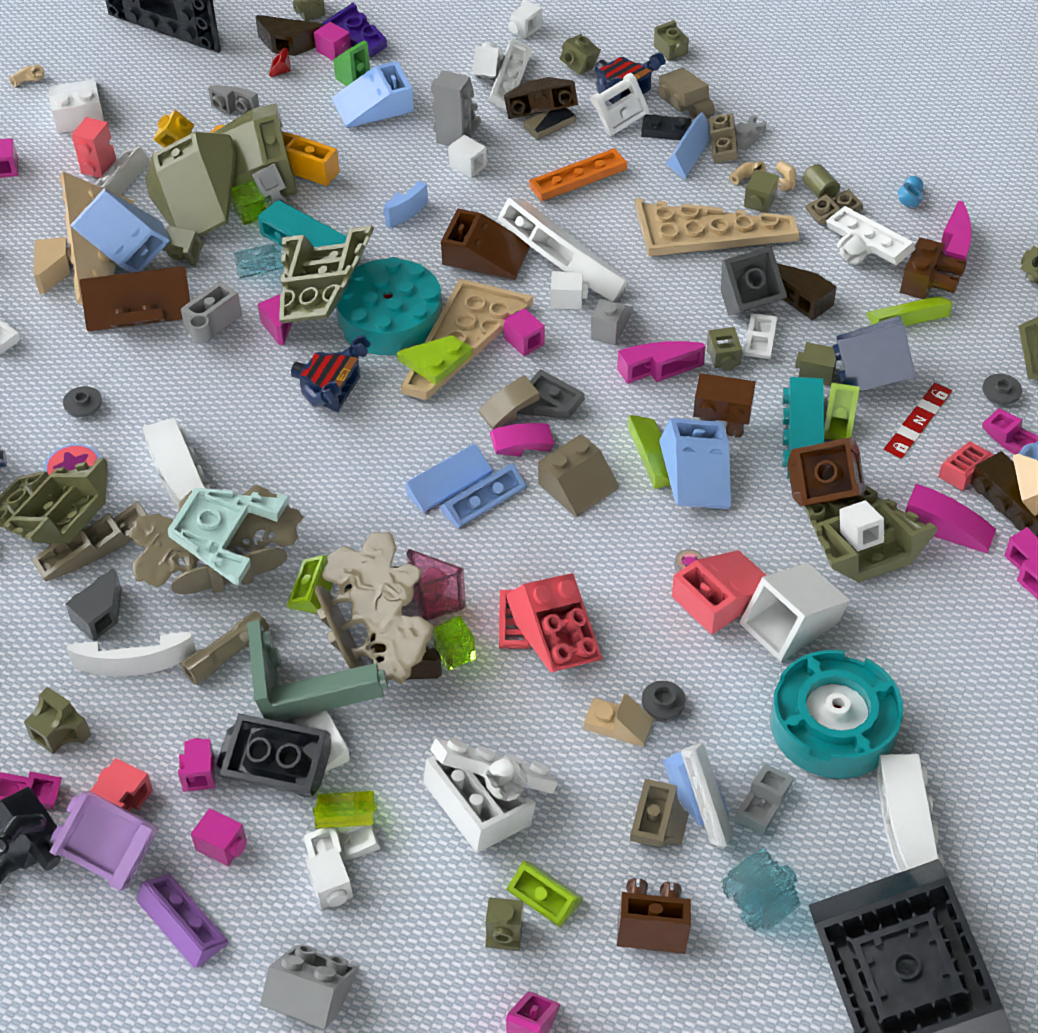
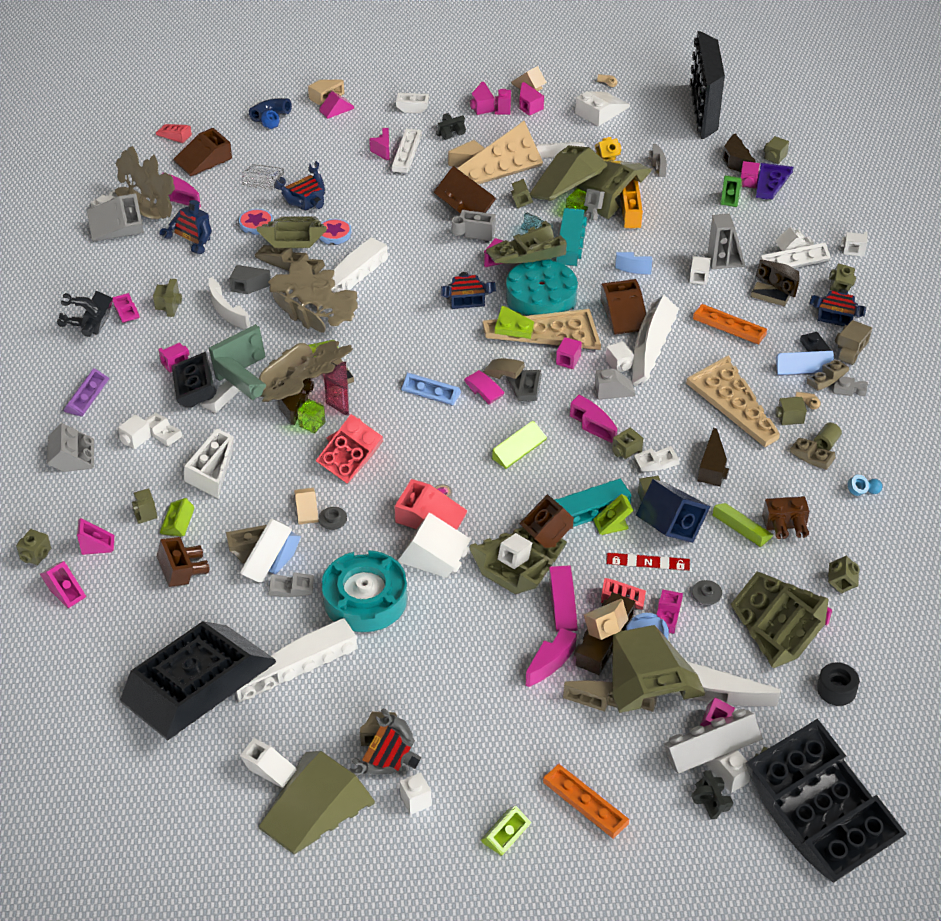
camera: 60 degrees right, 5 degrees down
(82, 401) = (380, 213): dark grey piece -> none
(93, 147) = (562, 124): coral brick -> none
(103, 838) = (106, 340): lavender panel -> none
(122, 231) = (498, 162): light blue slope -> none
(123, 785) = (136, 337): coral brick -> none
(207, 660) = (269, 338): dark tan axle -> none
(212, 519) = (315, 283): light aqua wing -> none
(219, 837) = (136, 382): dark pink brick -> none
(280, 63) = (711, 164): red slope -> none
(344, 809) = (179, 420): clear neon green piece -> none
(375, 96) = (706, 206): light blue slope -> none
(448, 478) = (431, 368): light blue slope -> none
(501, 773) = (225, 457): white plate -> none
(577, 475) = (470, 418): dark tan slope -> none
(623, 111) = (803, 318): white plate -> none
(670, 40) = (903, 315): olive brick -> none
(697, 462) = (515, 463): light blue slope -> none
(725, 400) = (568, 453): reddish brown brick -> none
(751, 281) = (688, 429): dark grey slope -> none
(762, 890) = (218, 597): clear light blue brick -> none
(789, 174) = (818, 422): tan arm -> none
(865, 237) = (786, 476): white plate -> none
(957, 233) = (834, 522): dark pink slope -> none

